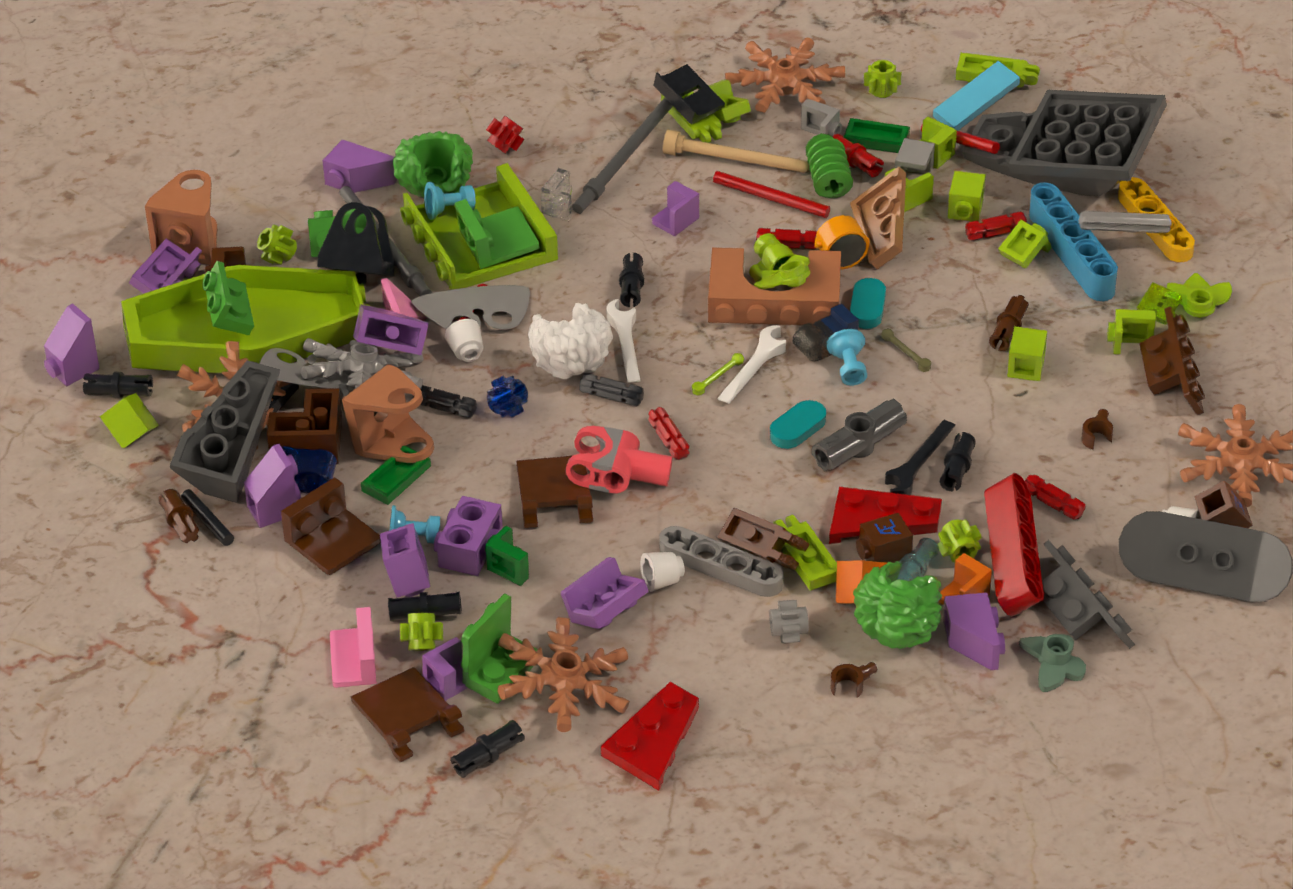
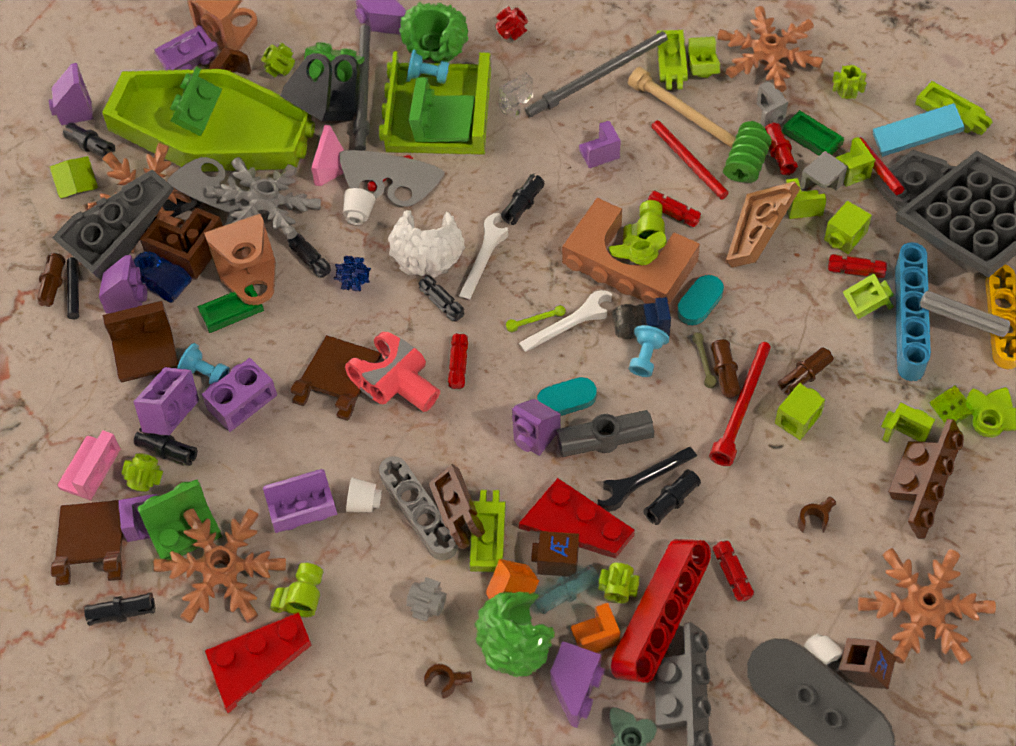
camera: 30 degrees right, 15 degrees up
(390, 330) = (296, 175): medium lavender slope -> none
(505, 558) = (251, 423): green bracket -> none
(662, 666) = (300, 595): none -> lime piece
(683, 81) = (668, 29): black piece -> none
(789, 452) = (534, 425): none -> medium lavender slope
(843, 235) = (712, 232): light orange piece -> none
(932, 346) = (725, 368): none -> reddish brown axle
(979, 409) = (724, 450): none -> red piece

